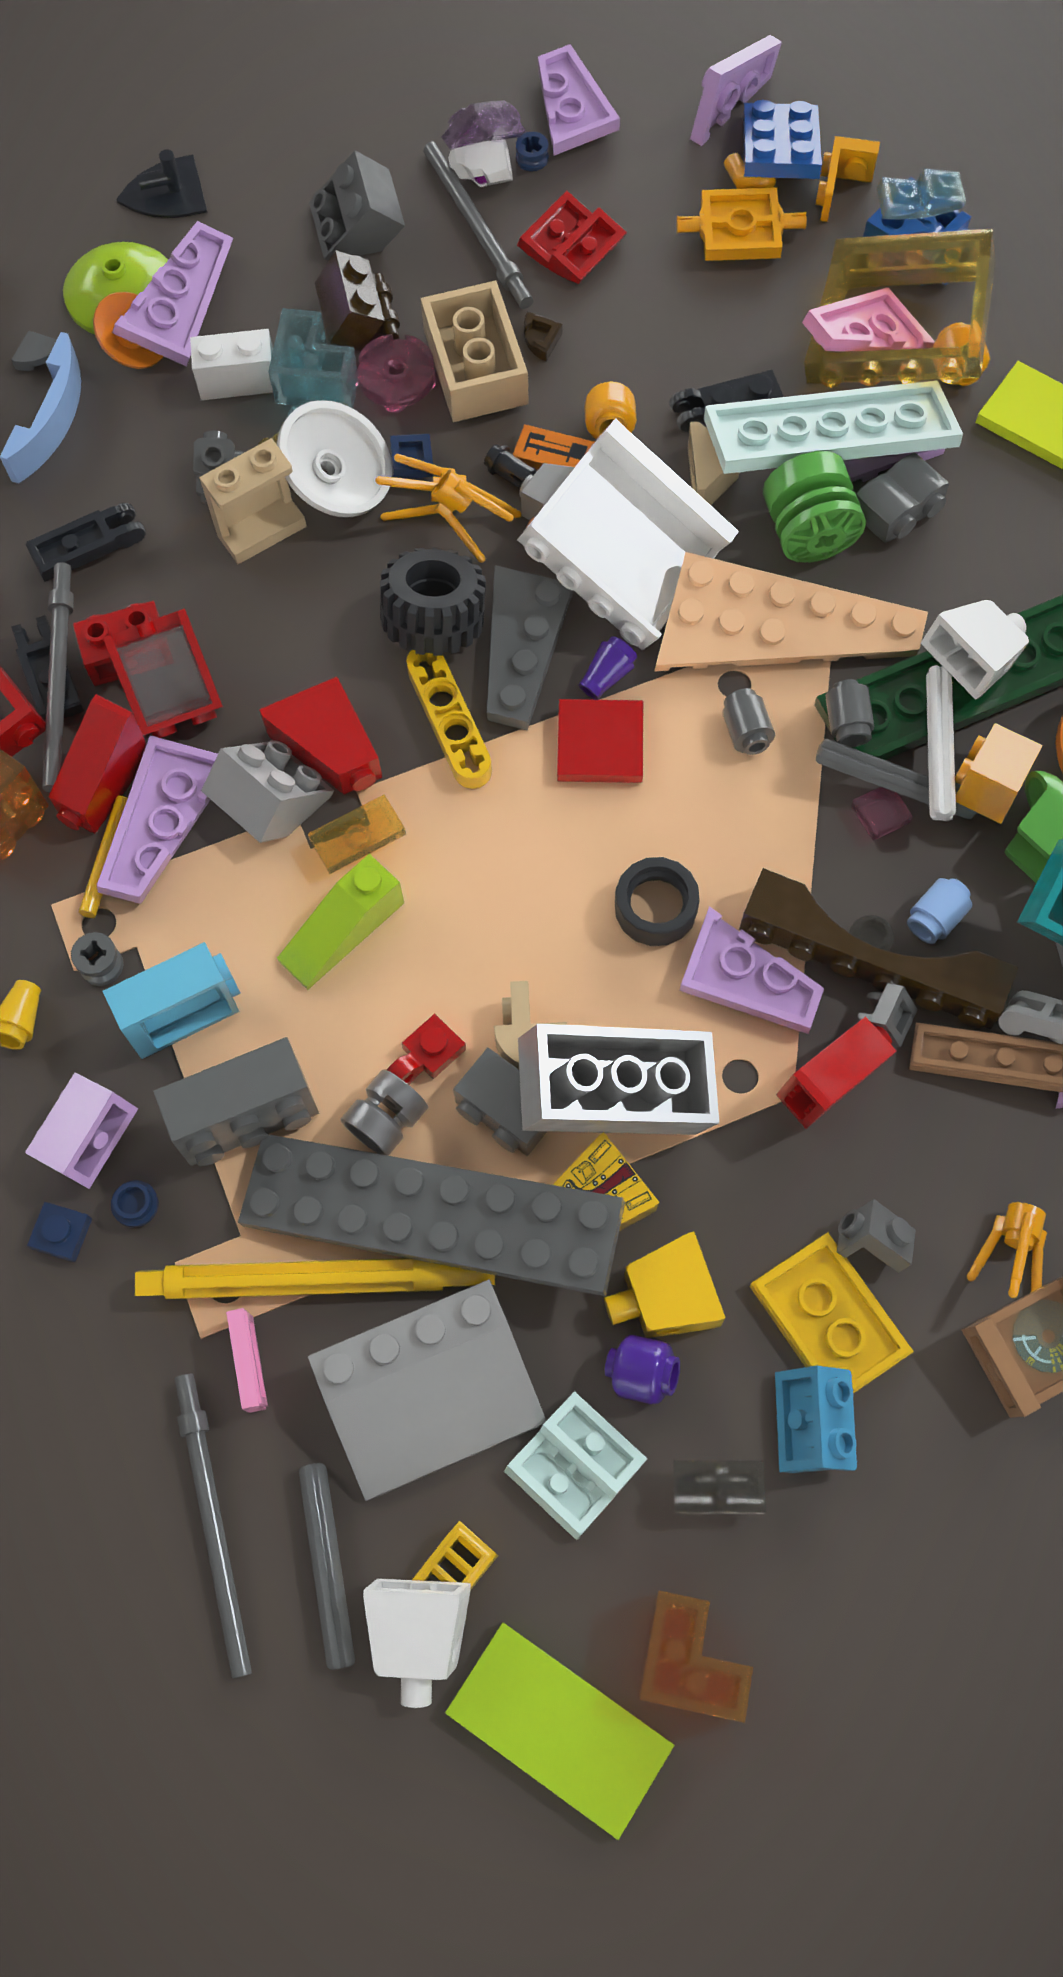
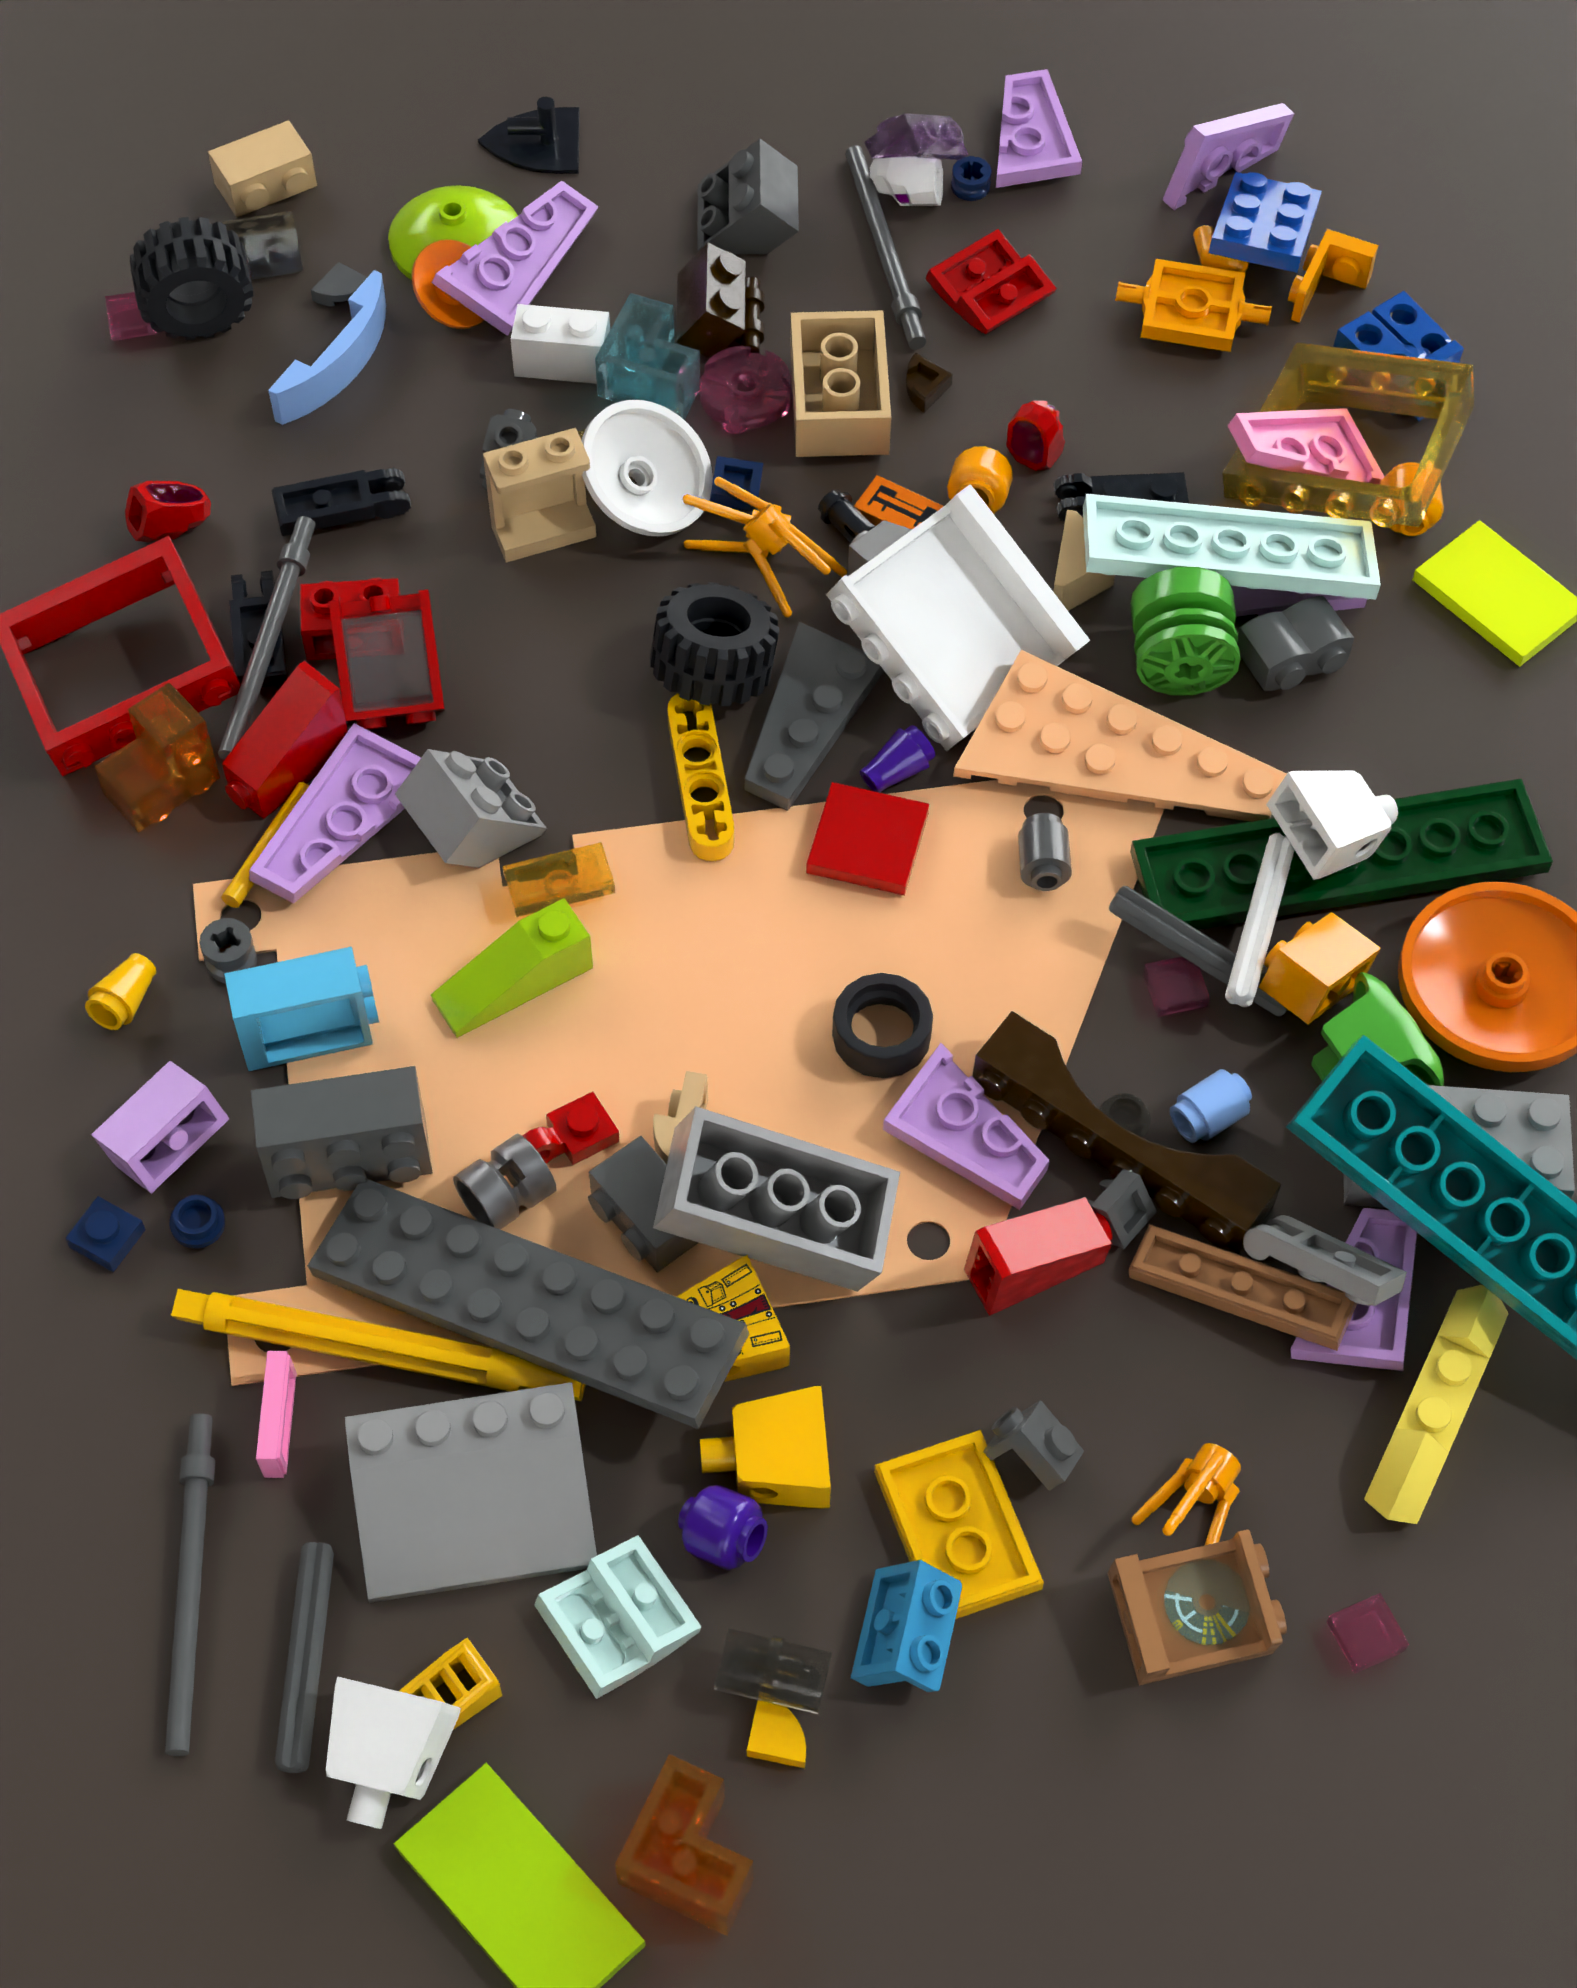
camera: 10 degrees right, 10 degrees down
(325, 735) = (552, 765): red slope -> none
(645, 362) = (1036, 435): none -> red rock
(733, 1537) = (776, 1736): none -> yellow tile
(850, 713) = (1162, 864): dark grey brick -> none
(931, 195) = (1420, 315): clear light blue slope -> none

